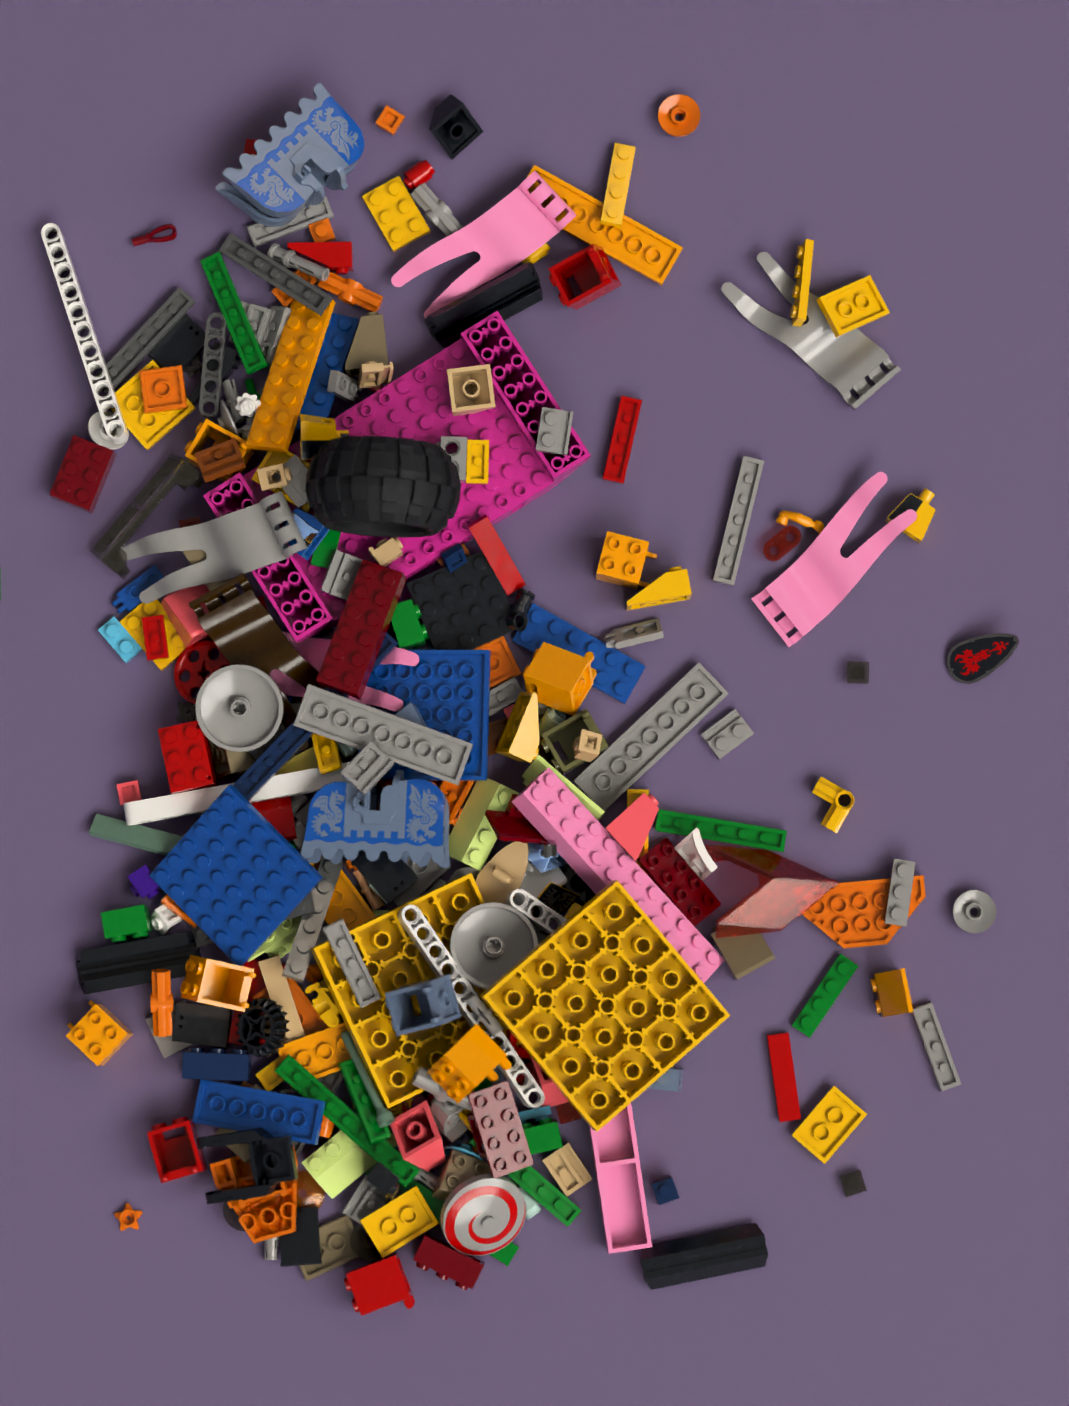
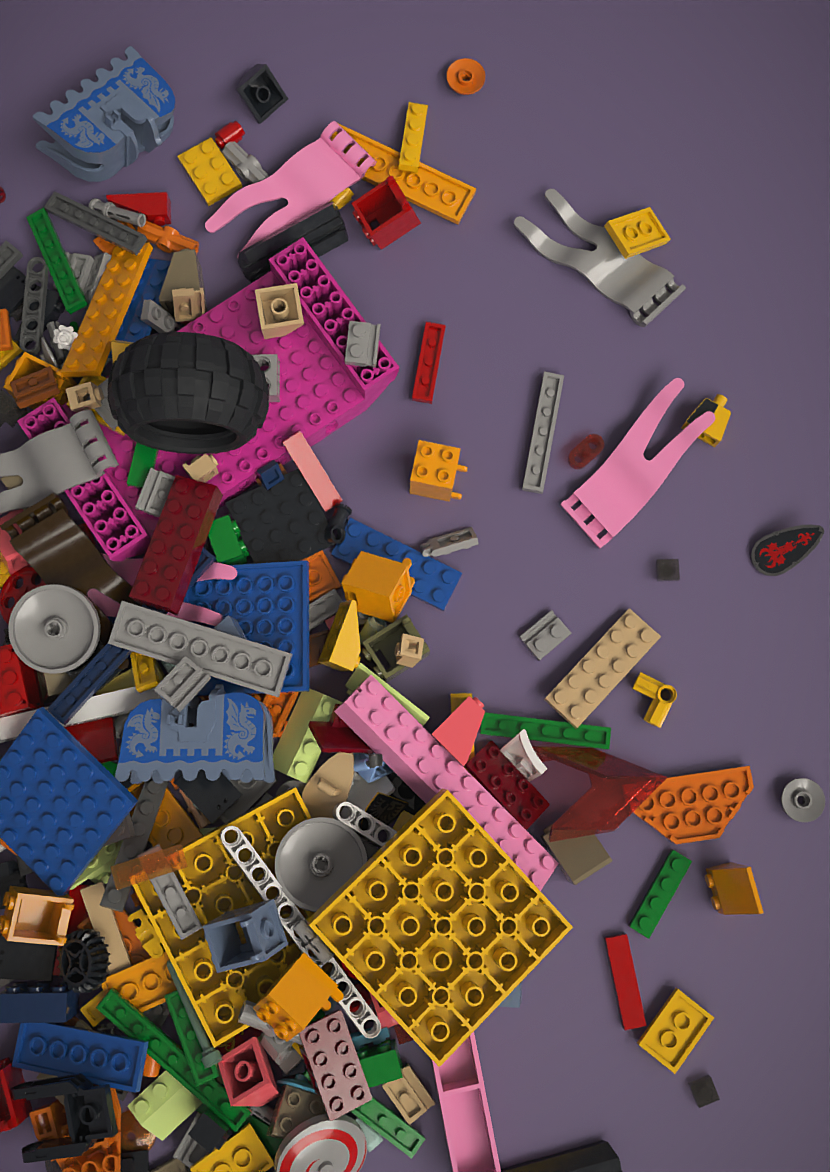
camera: 10 degrees left, 5 degrees down
(262, 234) = (124, 178): light grey tile -> none
(311, 530) = (125, 451): blue torso -> none
(322, 231) = (140, 186): orange plate -> none
(335, 937) = (148, 866): none -> clear orange plate
(390, 120) = (202, 90): orange plate -> none
(477, 462) = (289, 380): yellow plate -> none
(651, 737) = (470, 642): light grey plate -> none
(665, 1190) = (511, 1113): dark blue brick -> none
(668, 588) = (479, 497): yellow slope -> none
(783, 770) = (602, 668): none -> tan plate
(797, 517) = (587, 426): light orange arm -> none
(801, 289) = (589, 218): yellow plate -> none
(899, 892) = (728, 785): light grey plate -> none
(936, 1046) = (778, 944): light grey tile -> none

